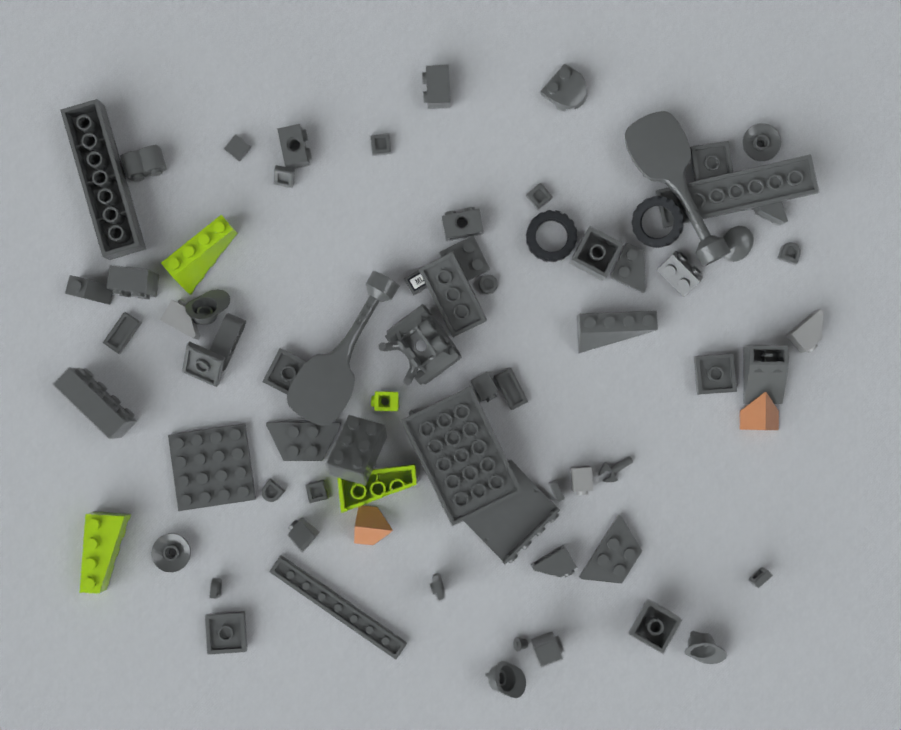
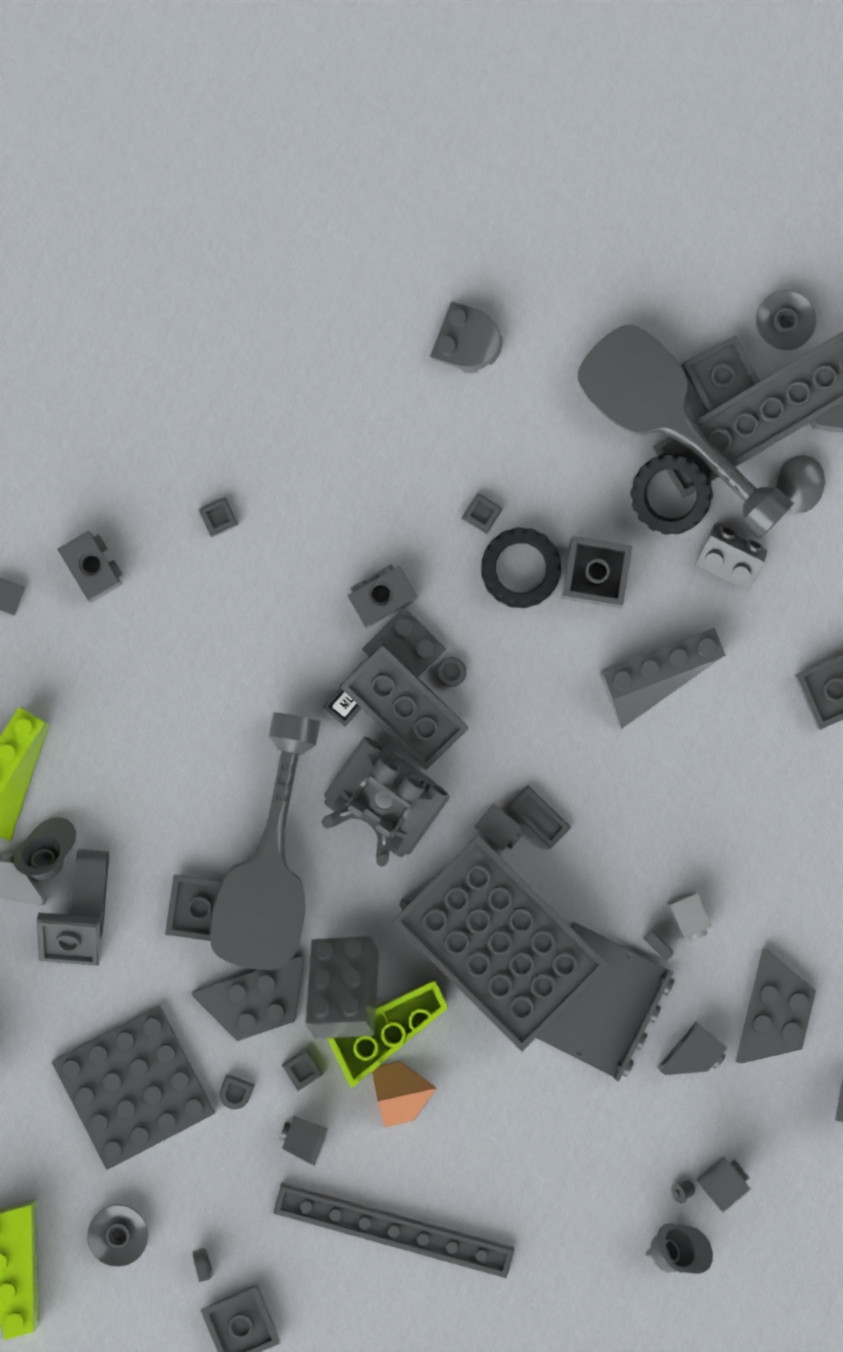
camera: 20 degrees left, 0 degrees up
(284, 176) = (90, 615): dark grey tile -> none
(393, 397) = (371, 900): lime brick -> none
(437, 86) = (274, 402): dark grey brick -> none
(437, 587) = (531, 1149): dark grey plate -> none
(616, 468) = (734, 882): dark grey bar -> none
(631, 268) = (655, 574): dark grey wing -> none

